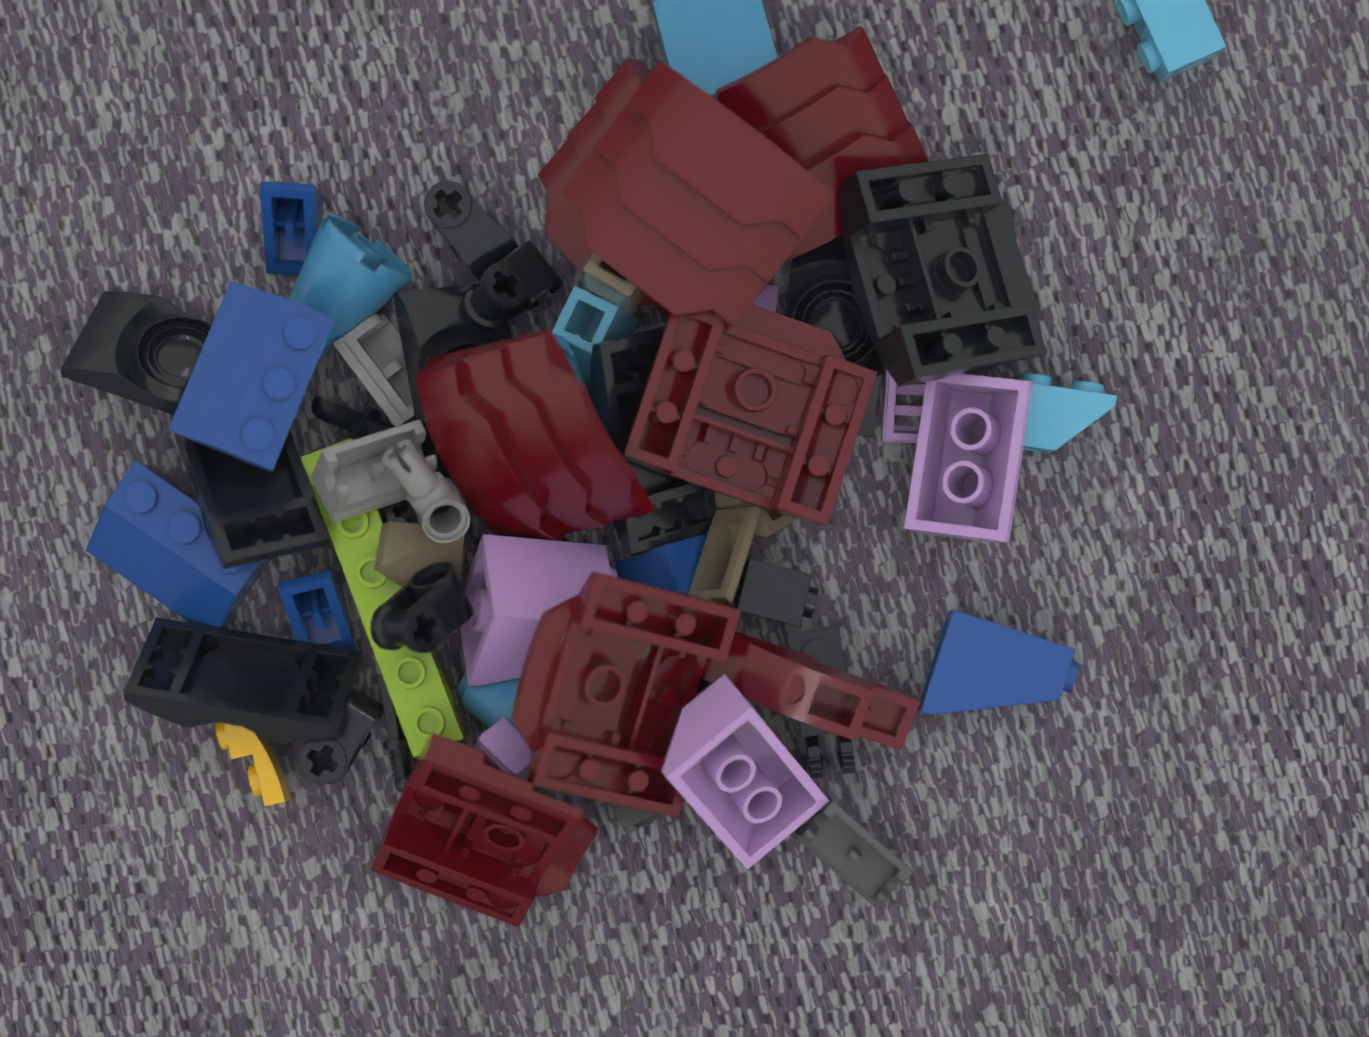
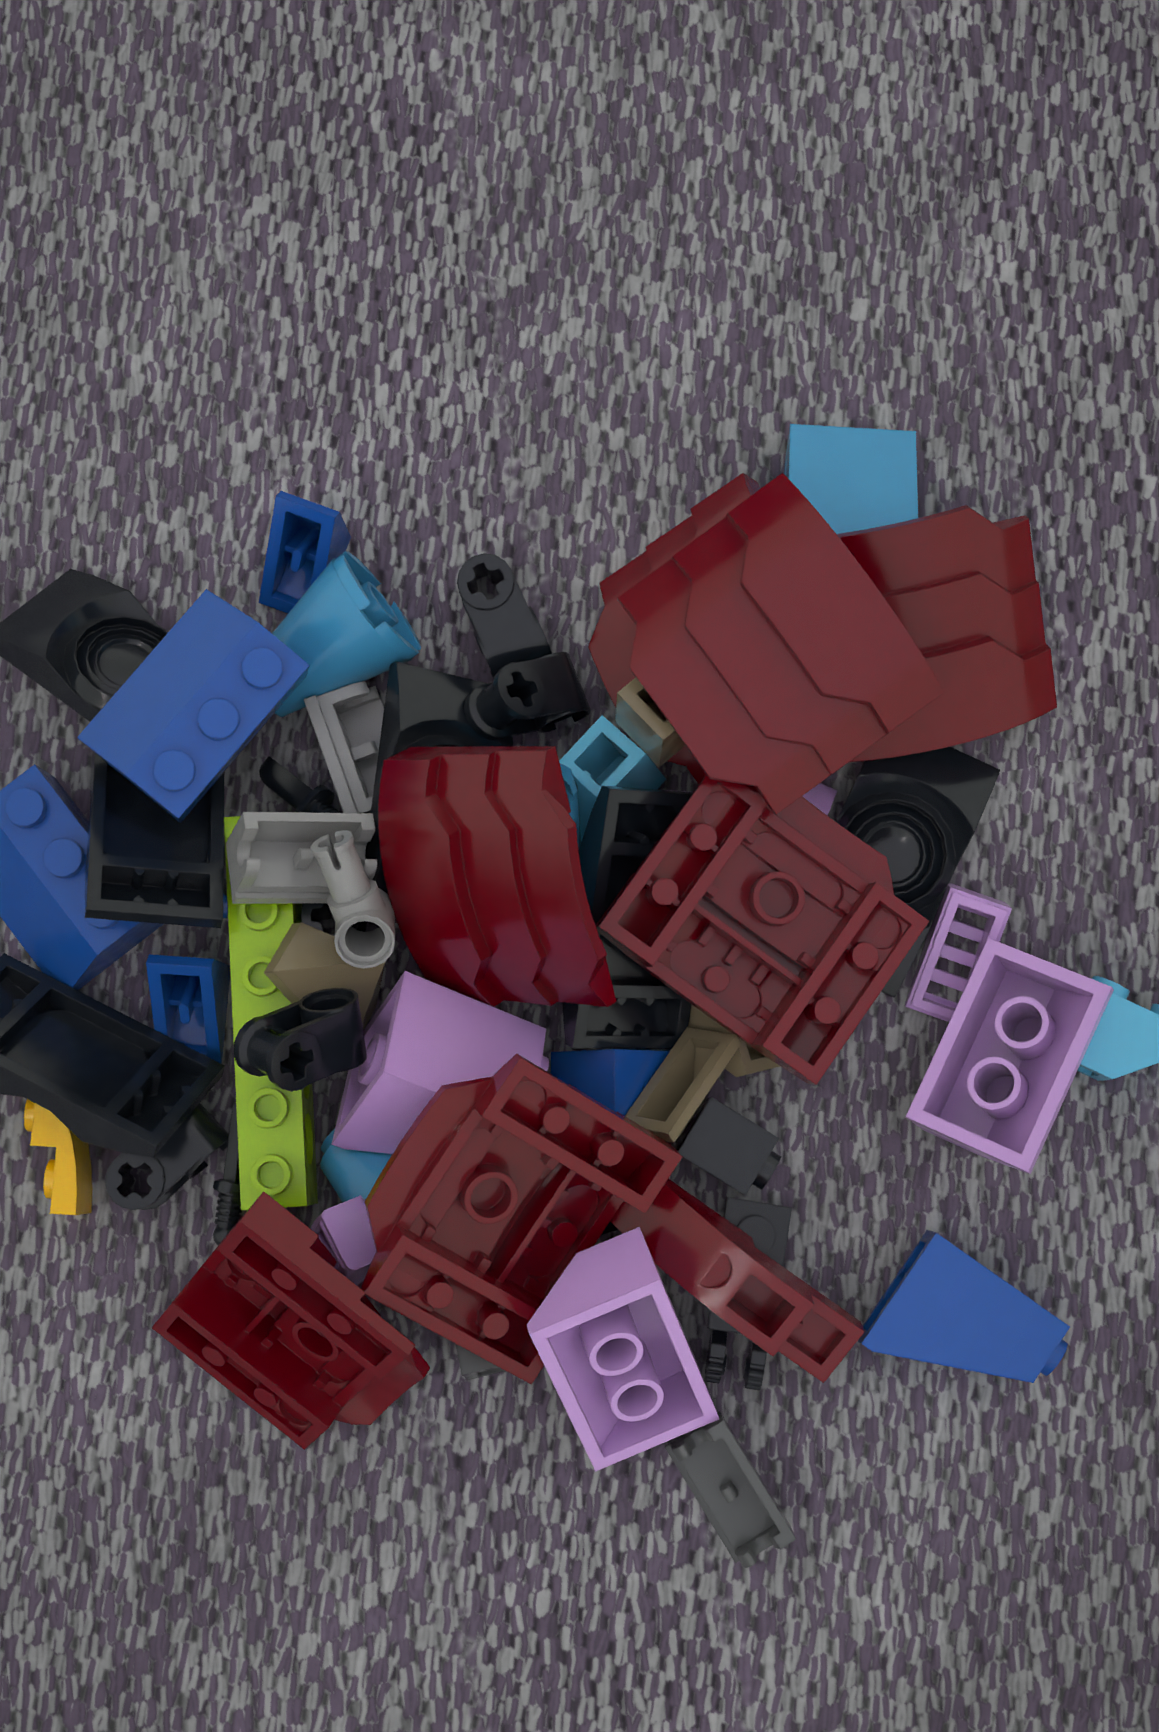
camera: 25 degrees right, 5 degrees down
(938, 269) = (1032, 823): black slope -> none

